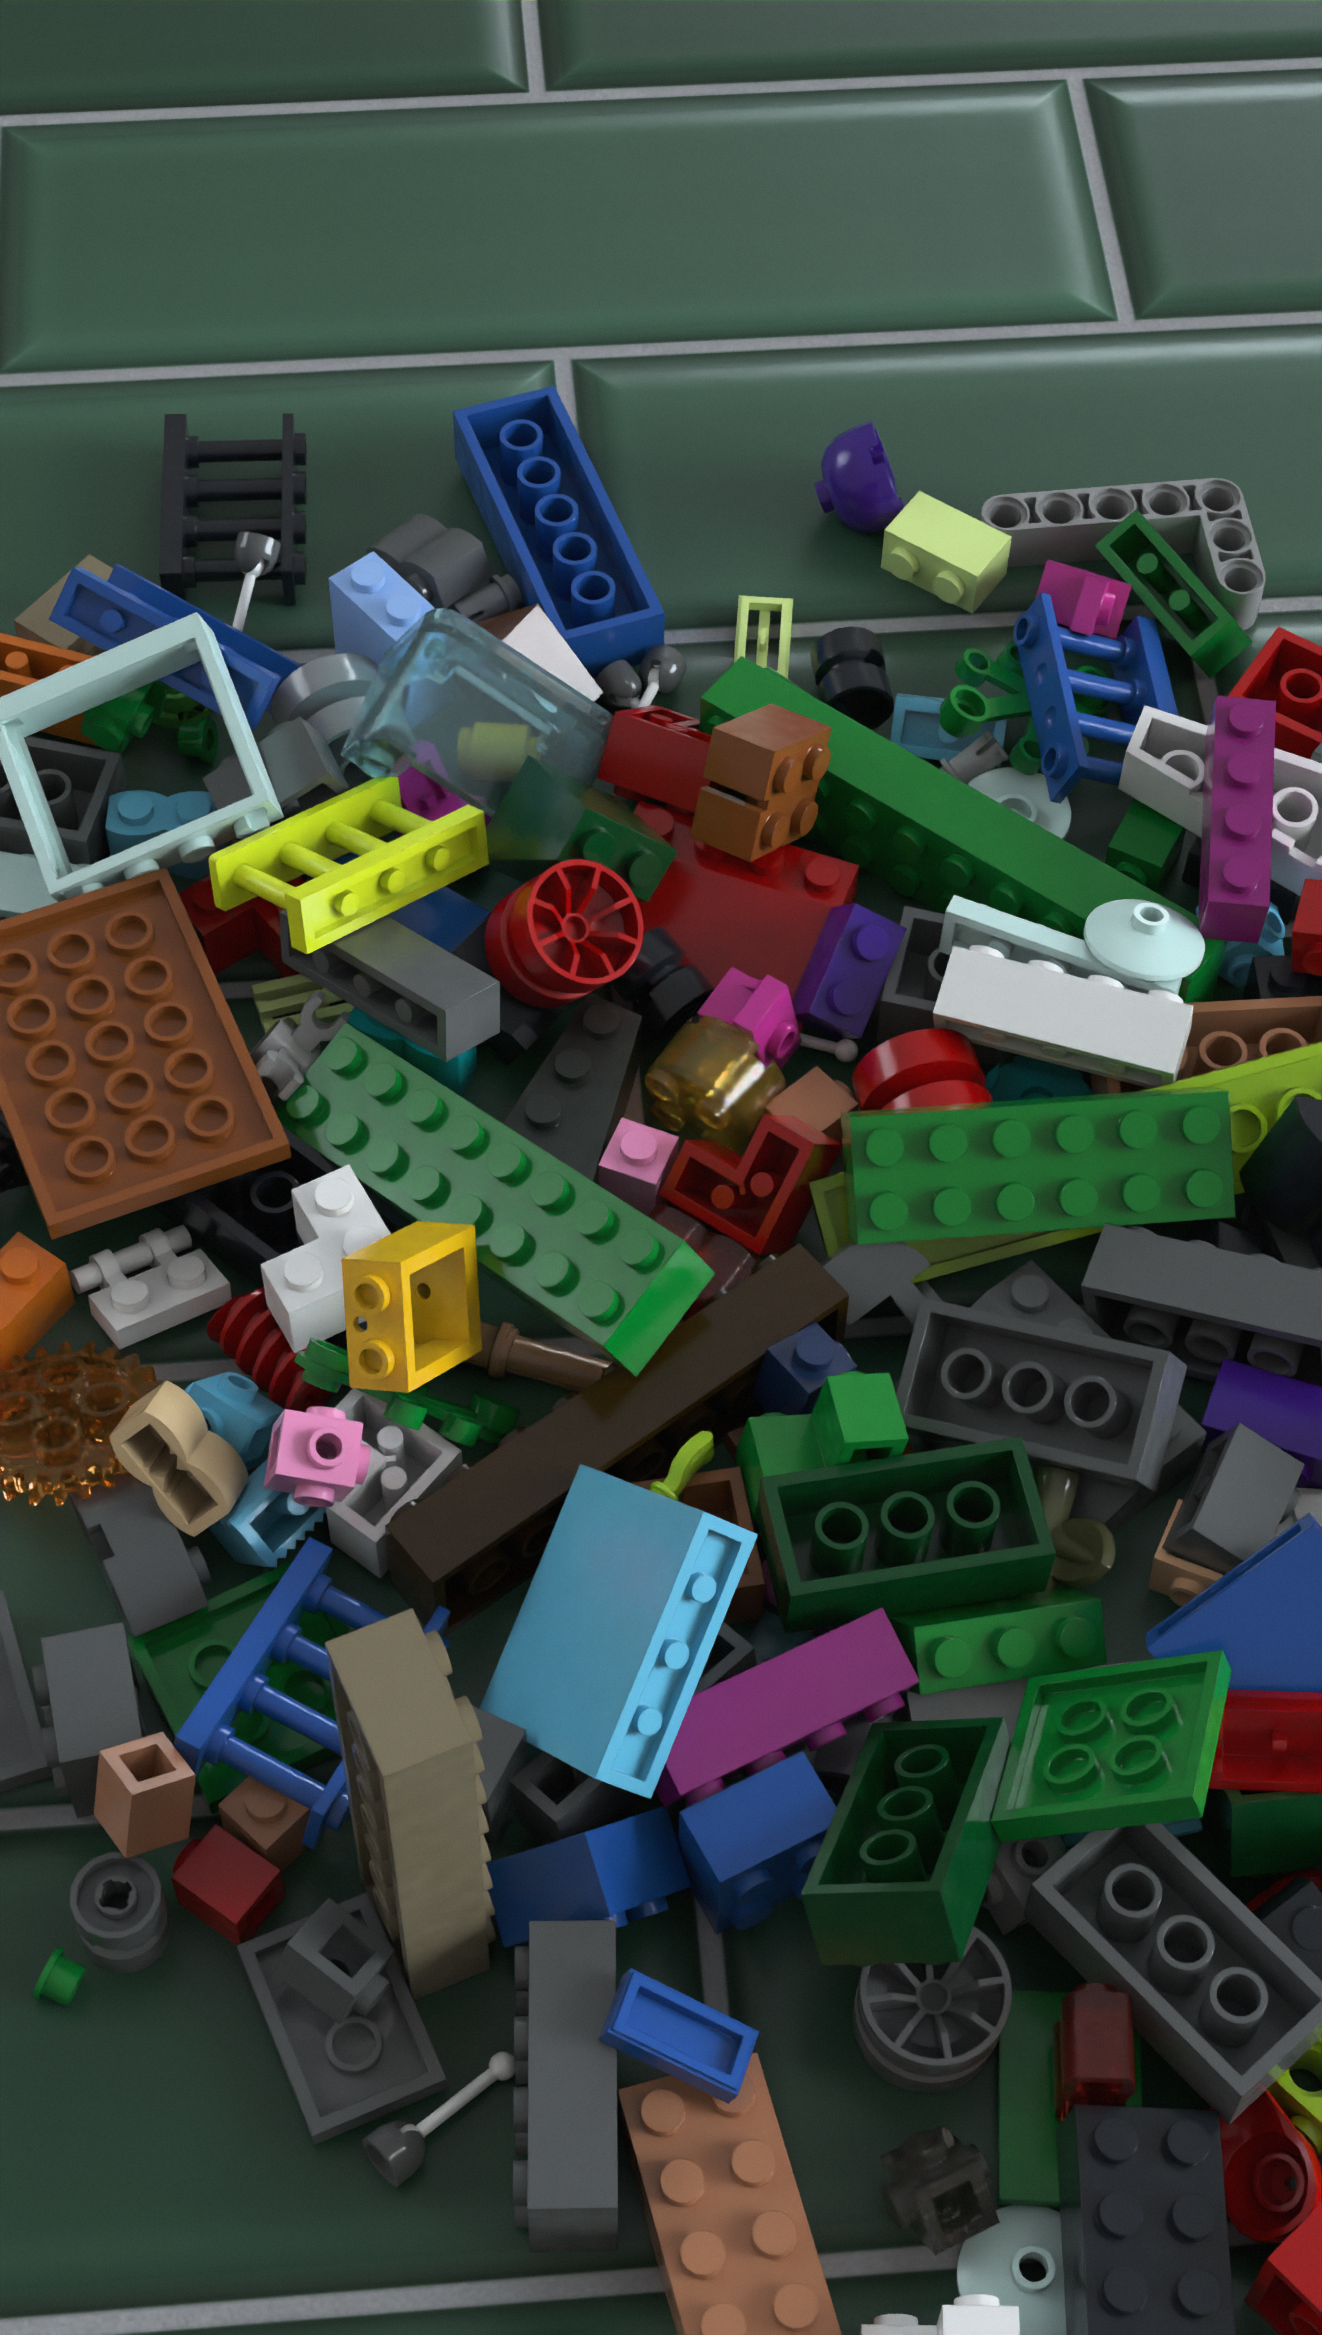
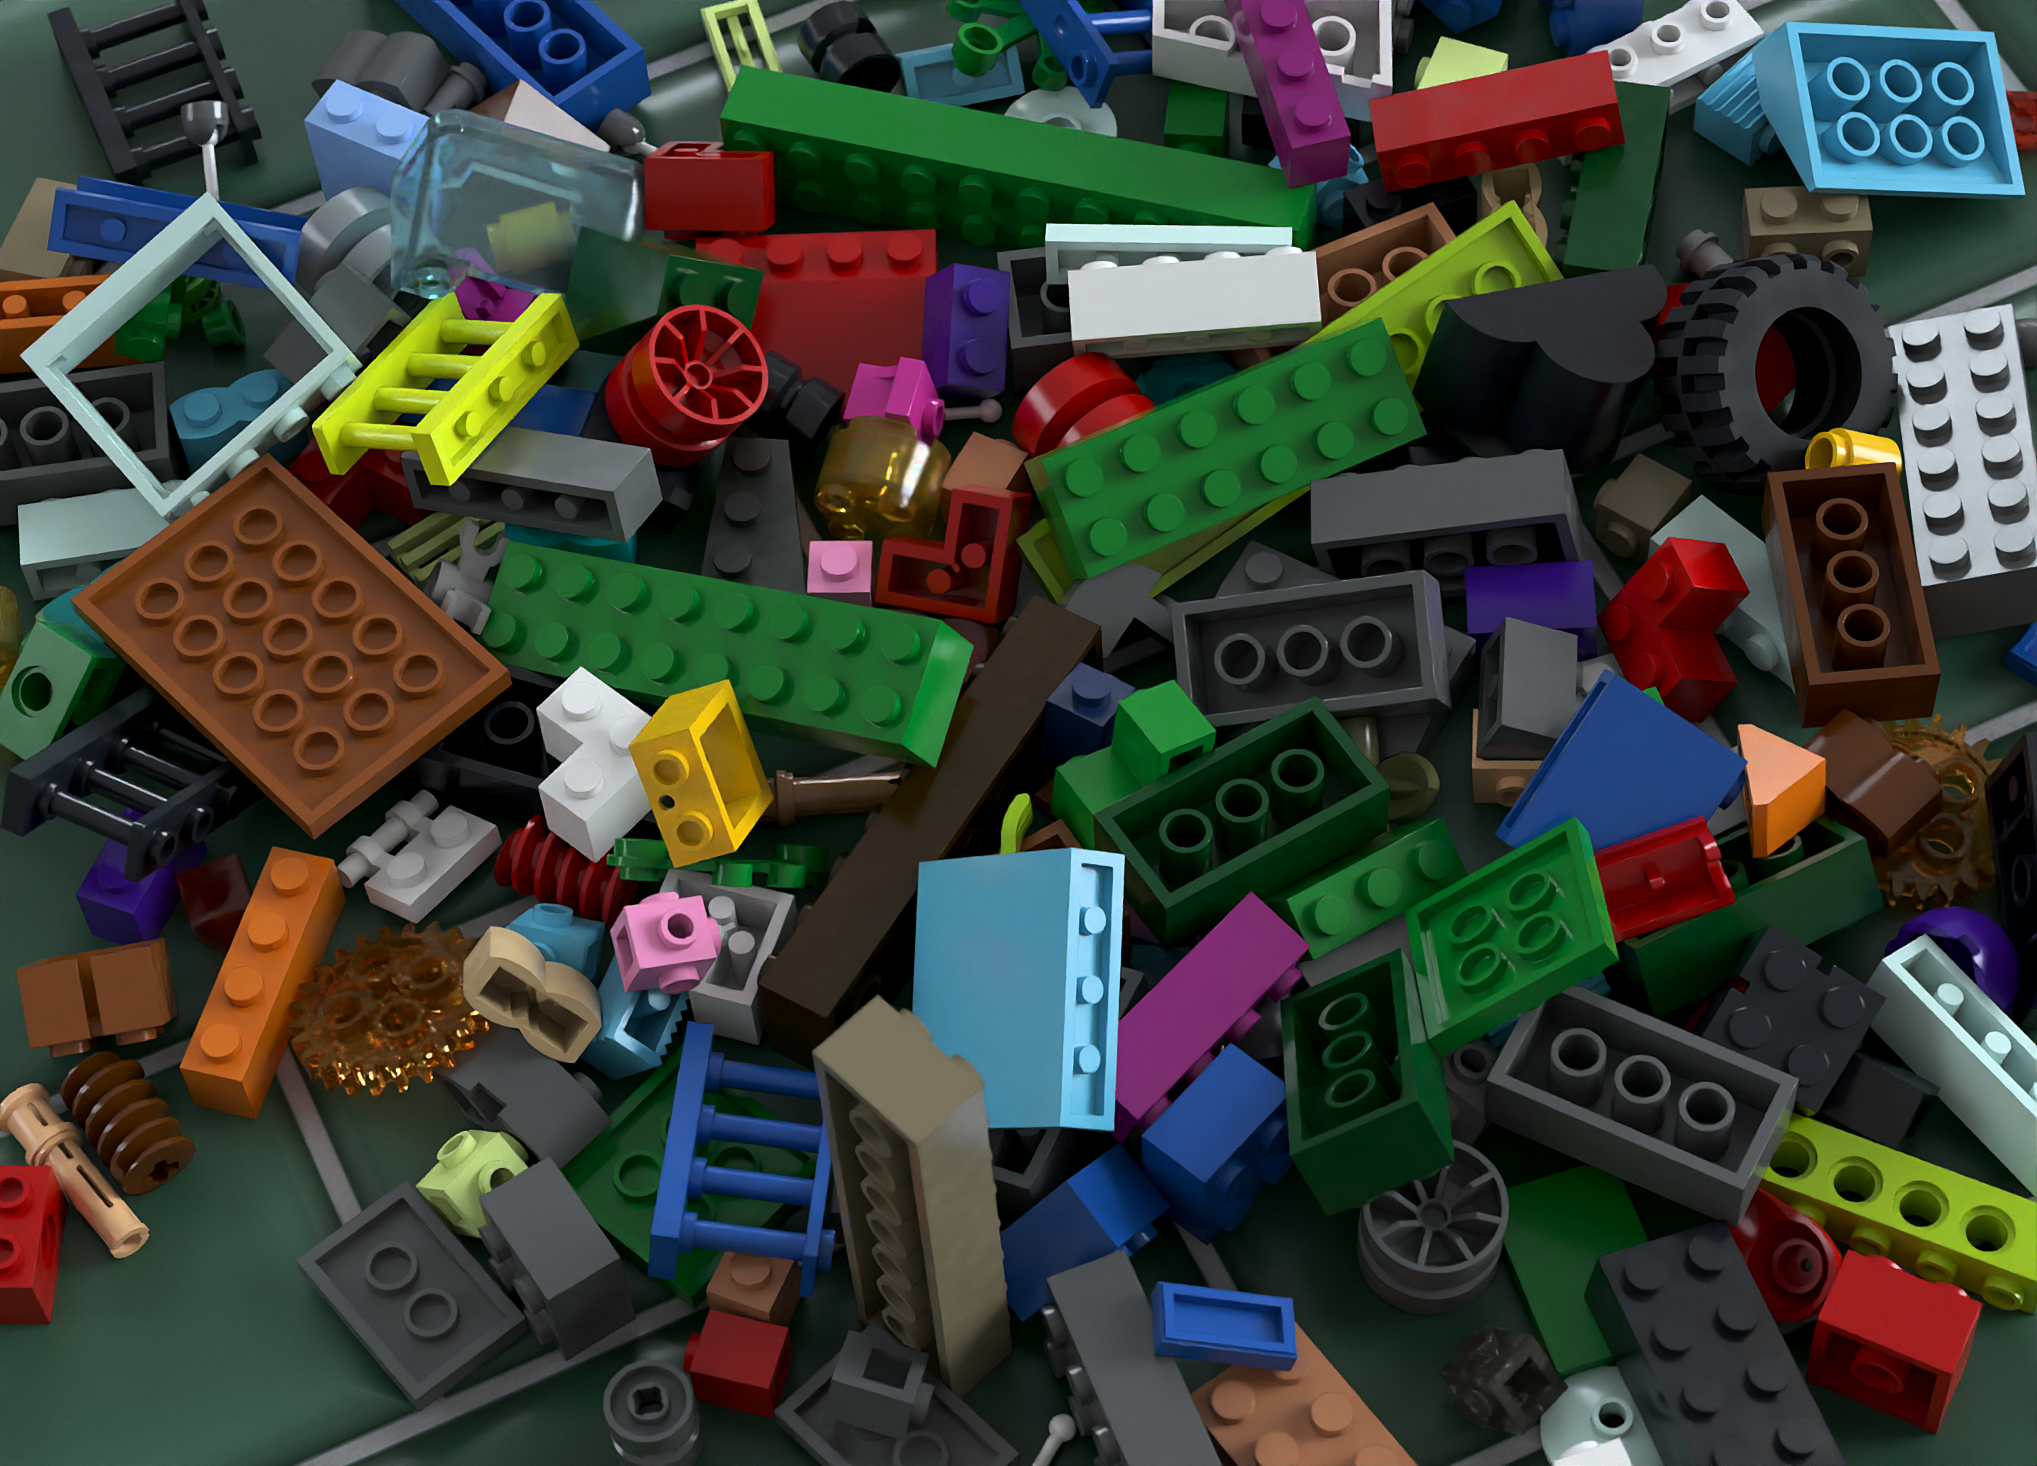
camera: 15 degrees left, 0 degrees up
(63, 1603) = (466, 1170): none -> yellowish green brick
(144, 1794) = (639, 1300): nougat brick -> none
(664, 680) = (659, 116): dark grey hinge -> none
(778, 766) = (824, 158): dark orange piece -> none
(975, 759) = (1002, 90): light grey pin -> none
(1093, 2049) = (1593, 1205): clear red brick -> none
(1144, 940) = (1242, 207): light aqua dish -> none

